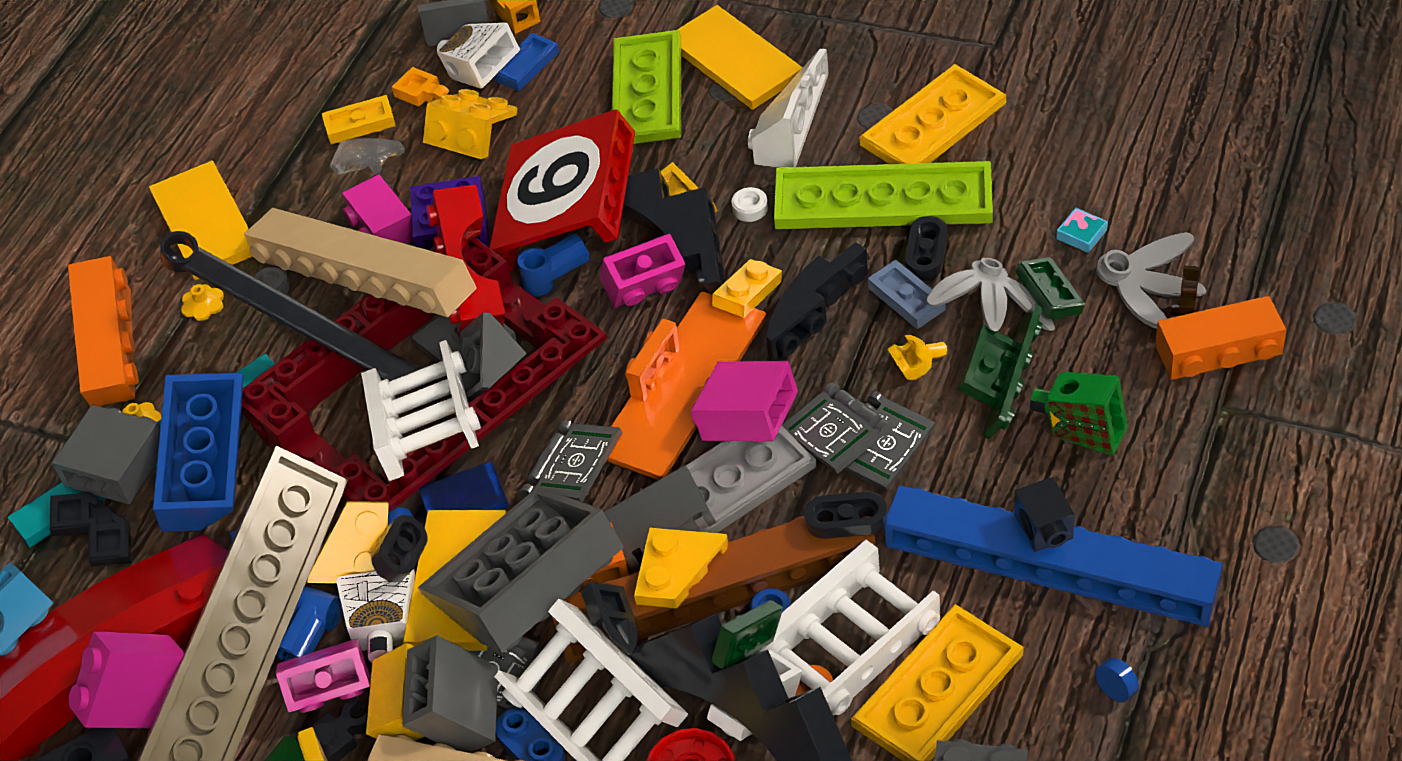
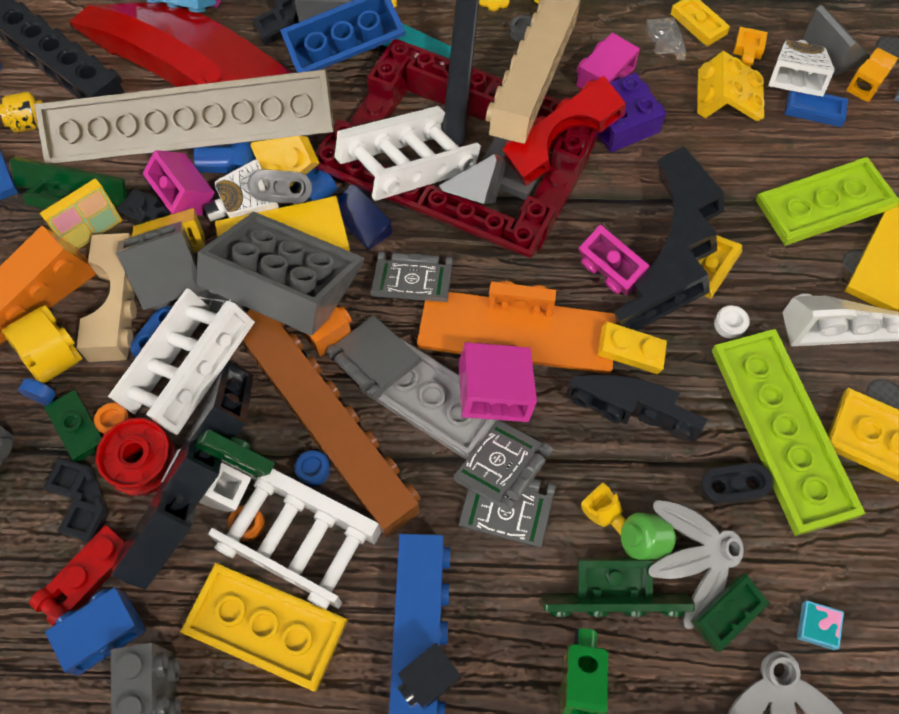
camera: 65 degrees right, 15 degrees up
(124, 679) = (133, 63): dark pink brick -> none
(541, 267) = (596, 192): blue piece -> none
(564, 183) = (674, 174): red panel -> none
(610, 609) = (244, 350): black plate -> none
(674, 564) = (312, 379): yellow wing -> none
(845, 515) = (388, 500): black plate -> none
(904, 294) = (676, 477): sand blue plate -> none
(957, 324) = (647, 537): none -> bright green head

